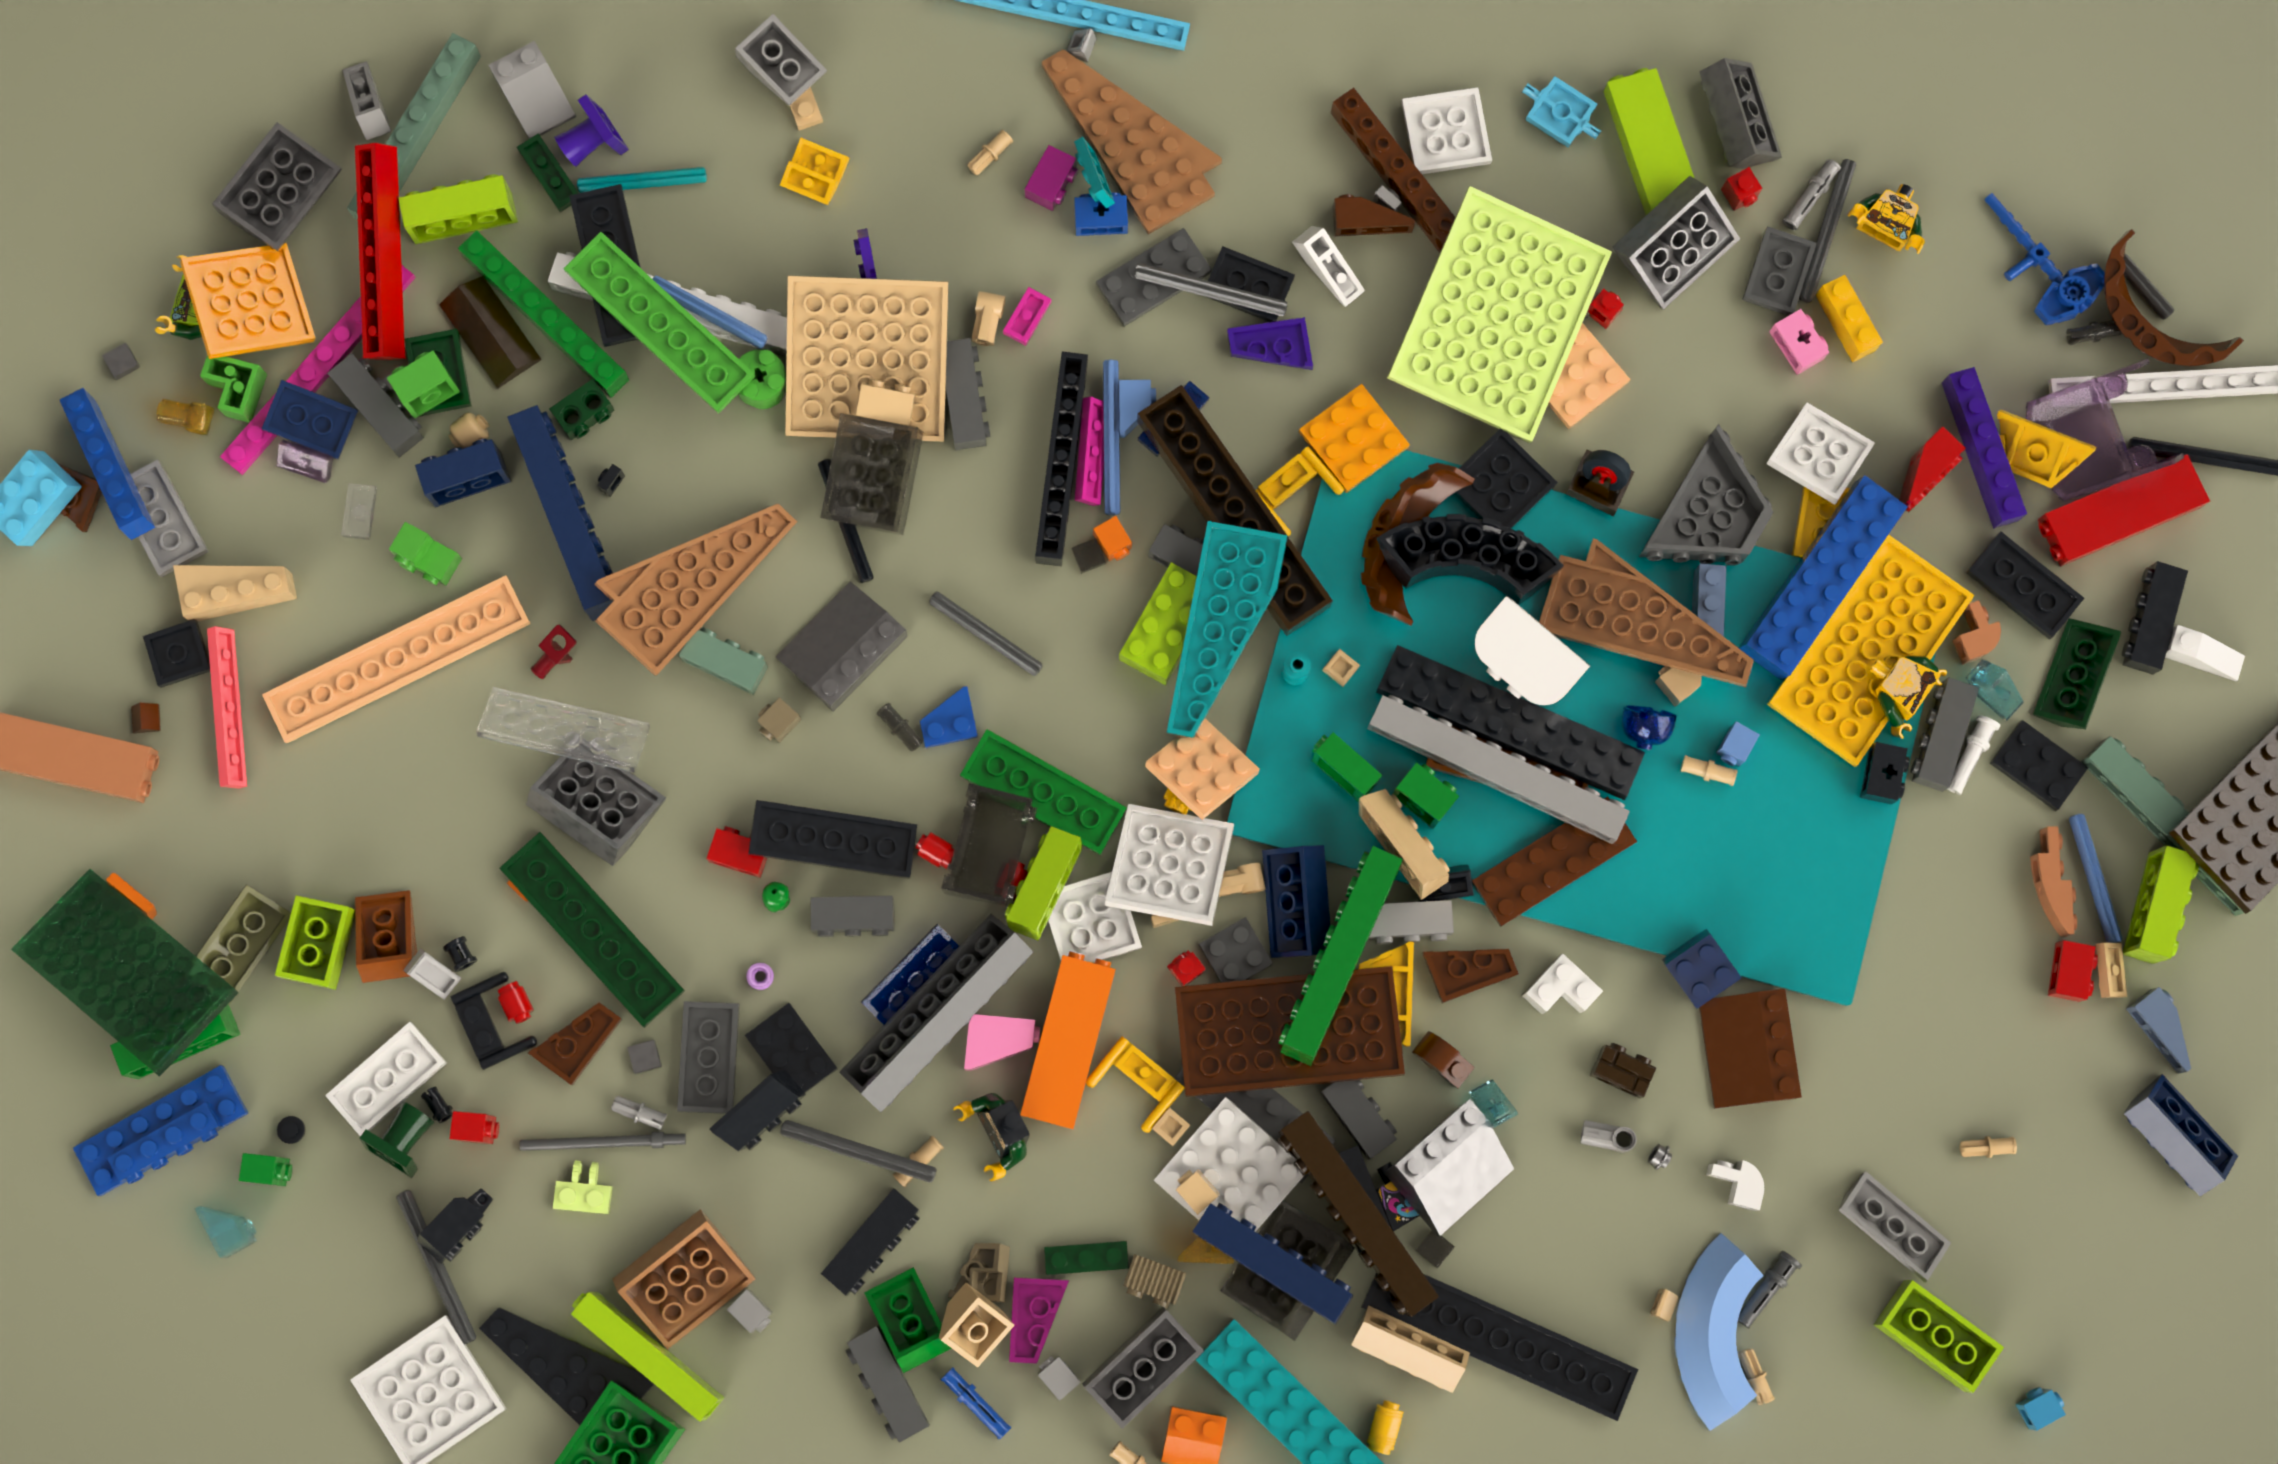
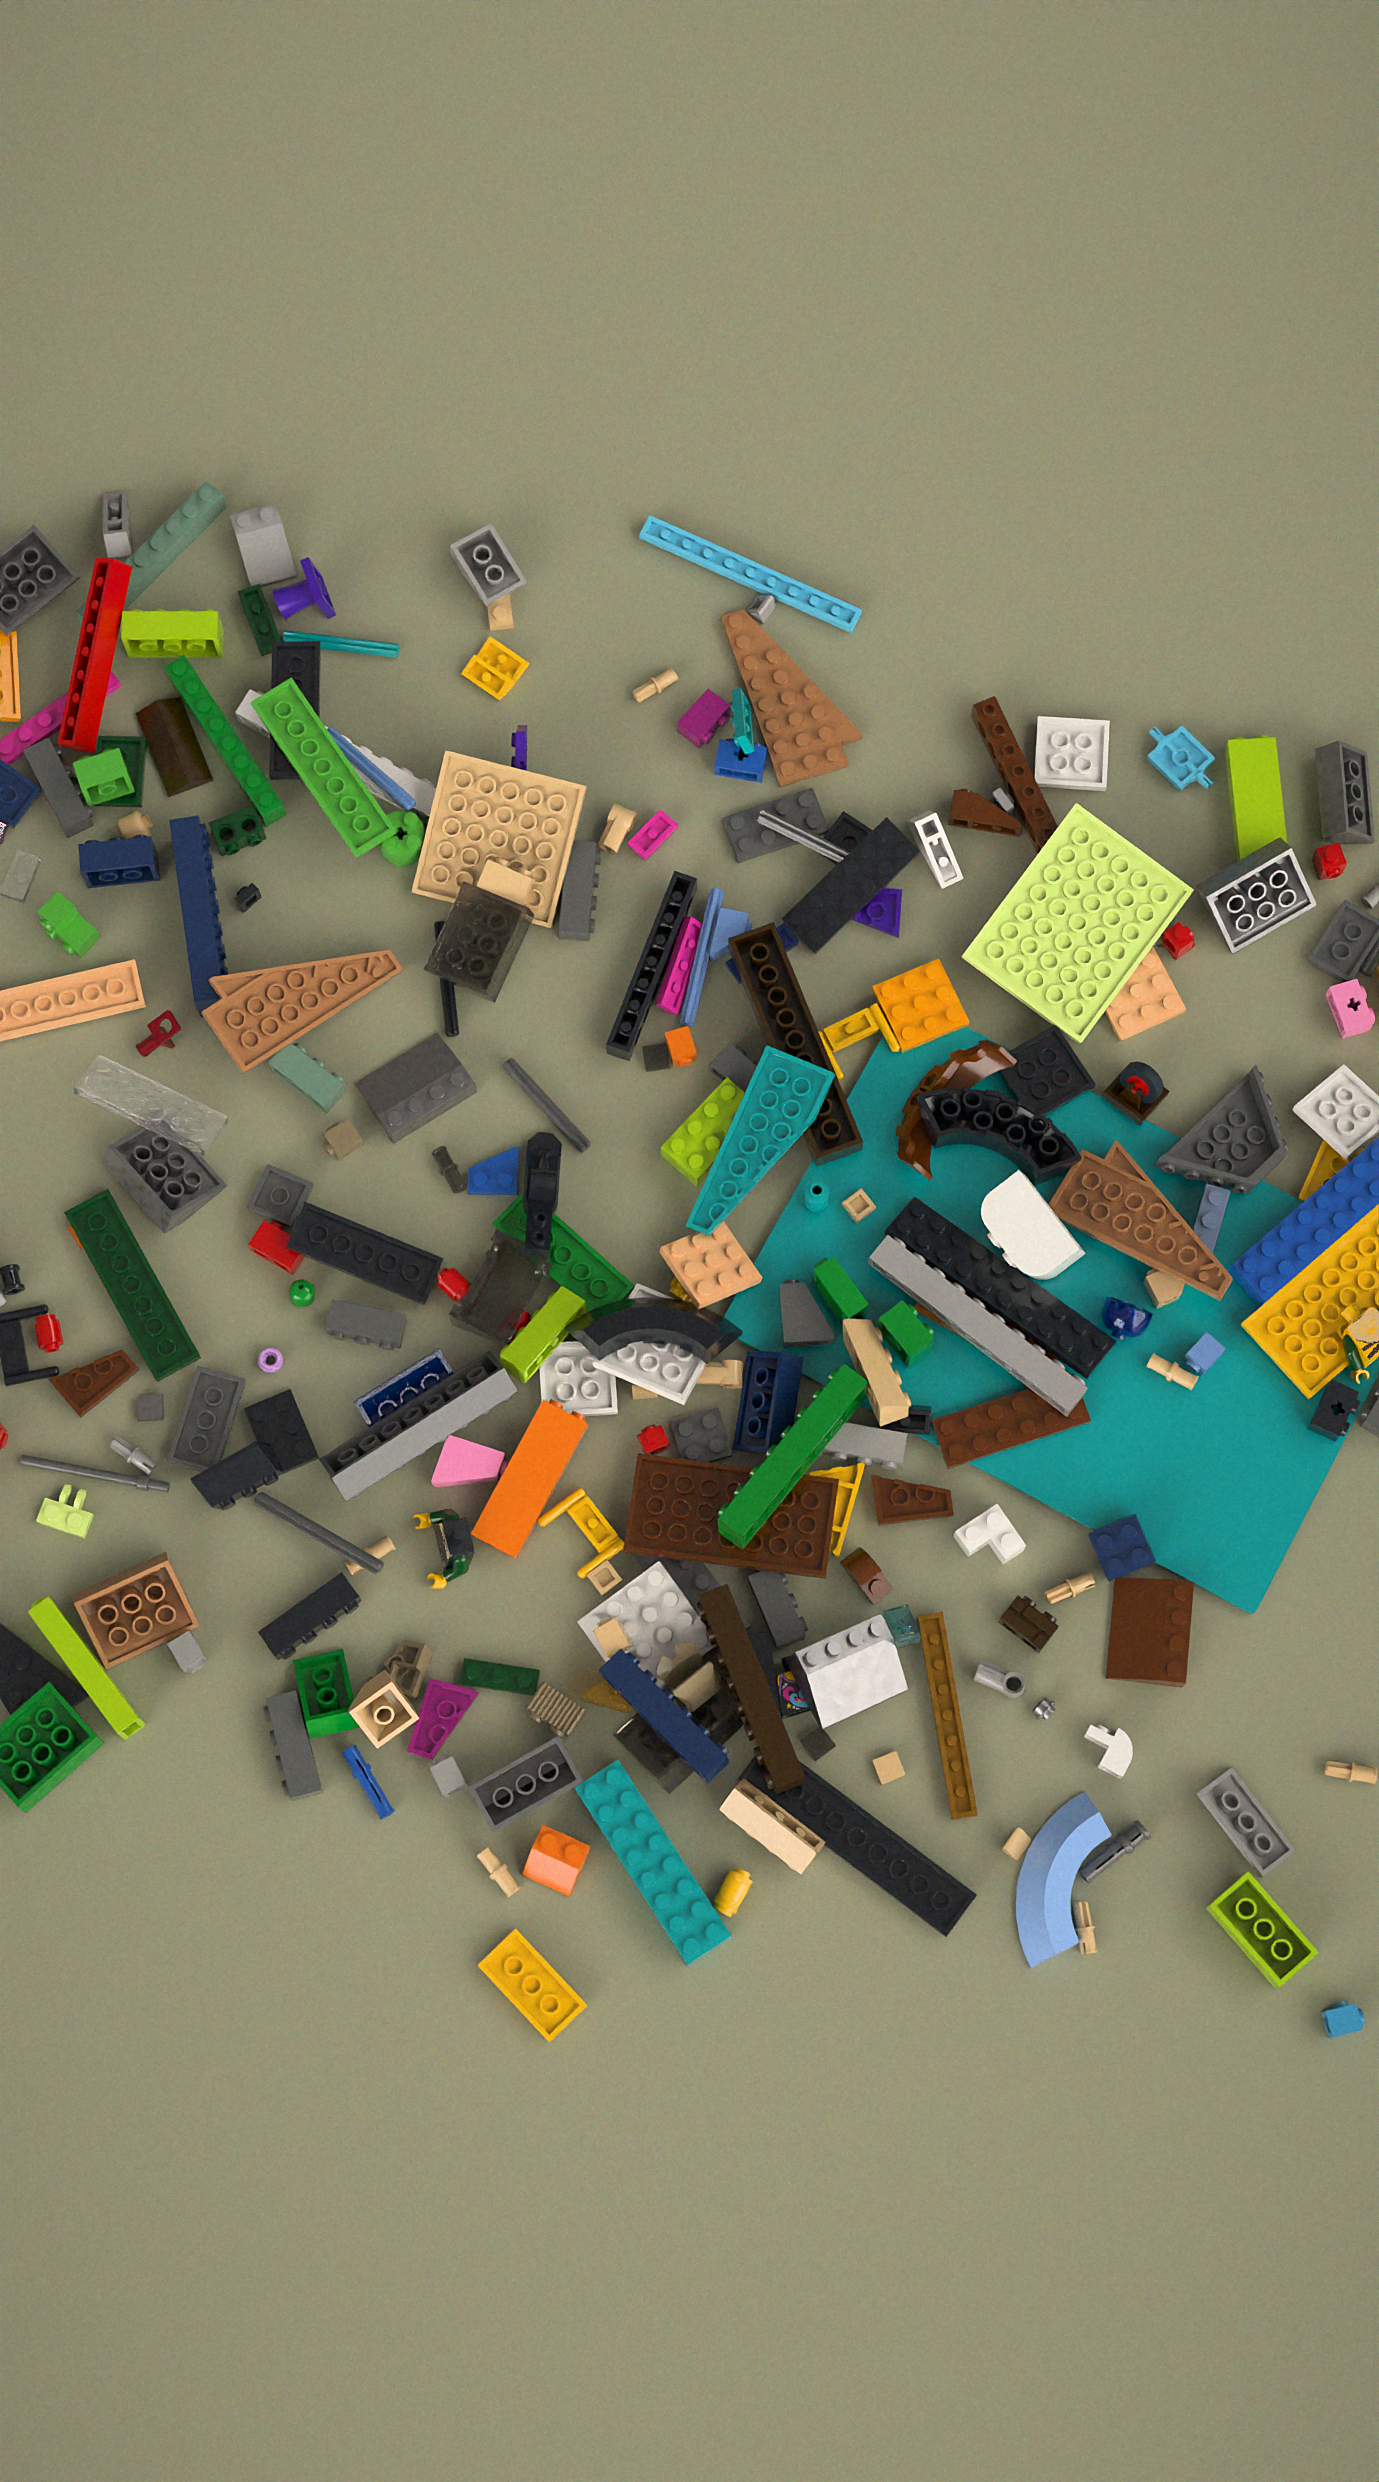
camera: 20 degrees right, 5 degrees down
(726, 797) = (280, 1196): none -> dark grey plate
(1004, 730) = (541, 1191): none -> black piece
(1158, 843) = (654, 1321): none -> black brick
(1251, 325) = (851, 885): none -> black plate
(1288, 1214) = (689, 1678): none -> dark tan piece
(1310, 801) = (801, 1317): none -> dark grey slope
(1514, 1256) = (888, 1768): none -> tan tile
(1562, 1188) = (947, 1716): none -> pearl gold plate
(1656, 1023) = (1070, 1588): none -> tan axle

